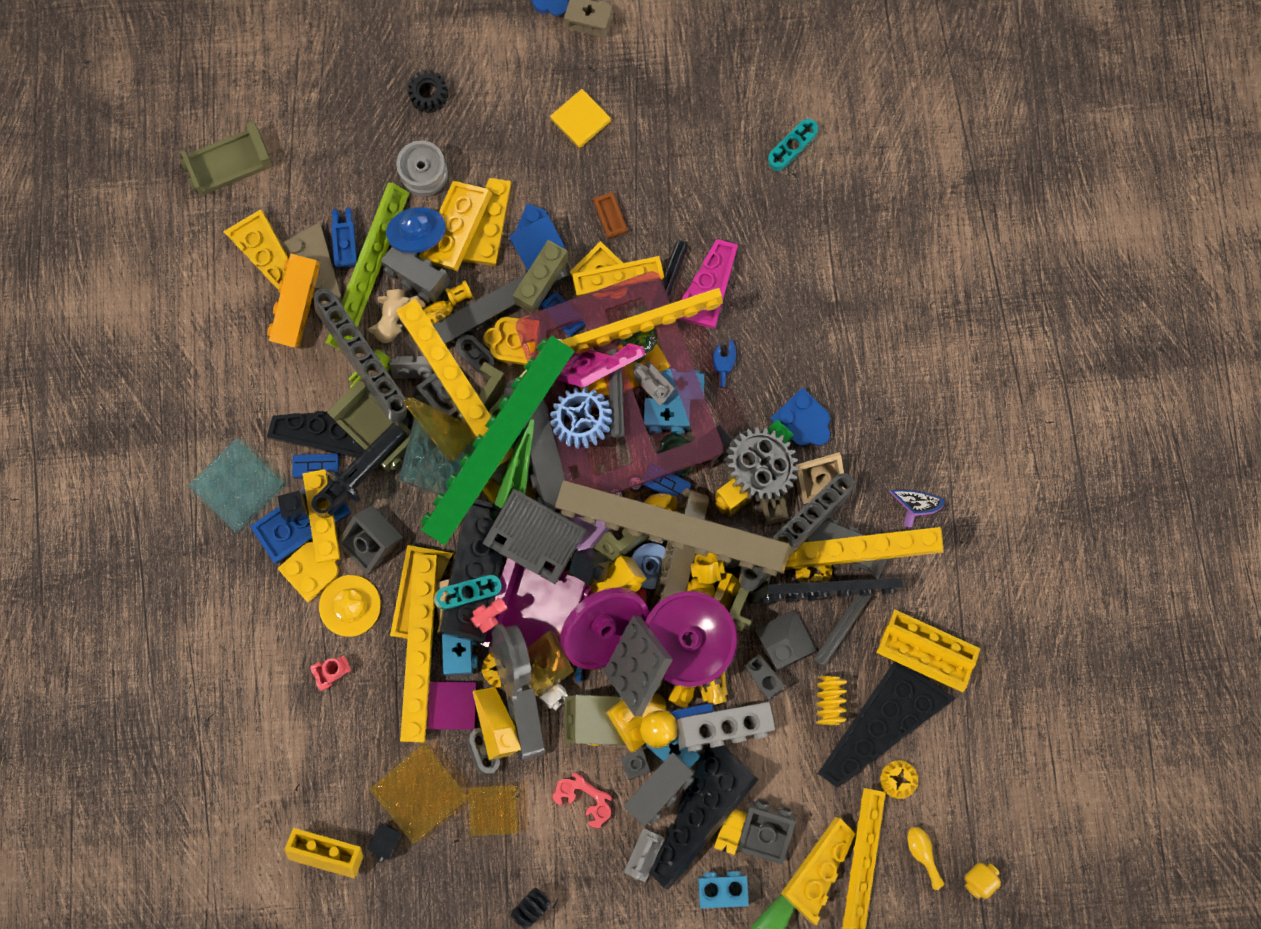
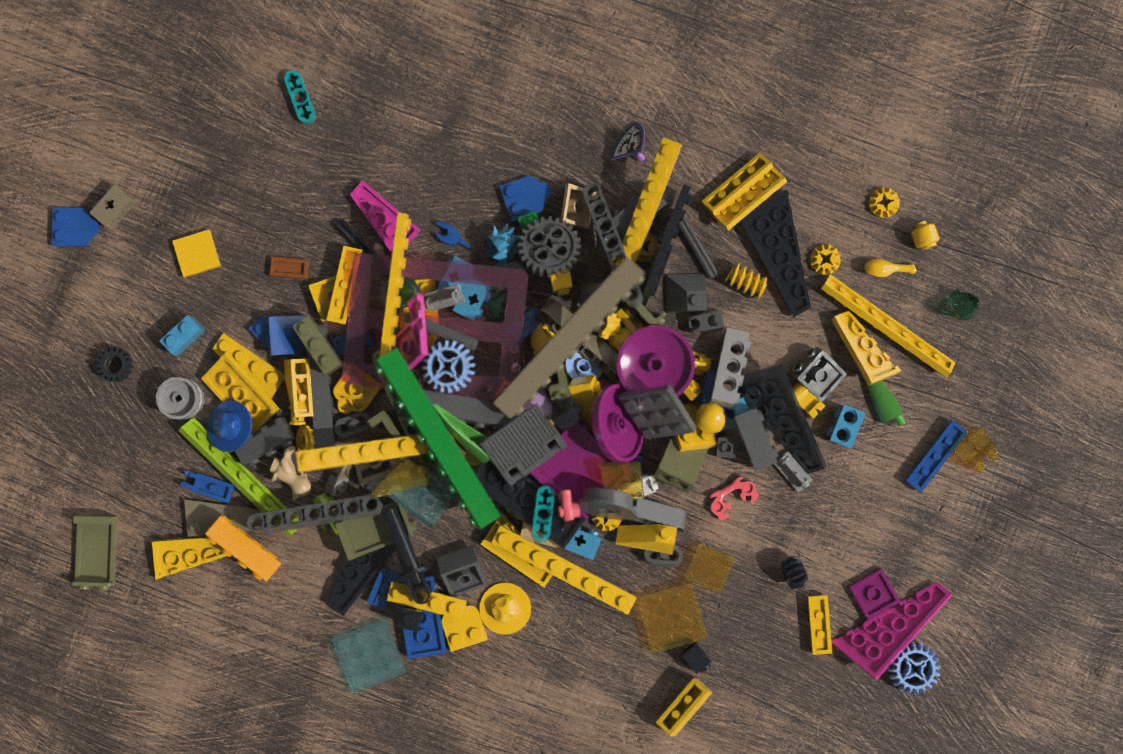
camera: 65 degrees left, 10 degrees up
(326, 672) = (549, 648): coral plate -> none
(452, 706) = (618, 564): magenta tile -> none
(488, 142) = (182, 335): none -> dark azure brick
(489, 280) = (299, 386): none -> yellow slope
(740, 417) = (502, 245): none -> dark azure hair
(985, 815) = (880, 210): none -> yellow gear

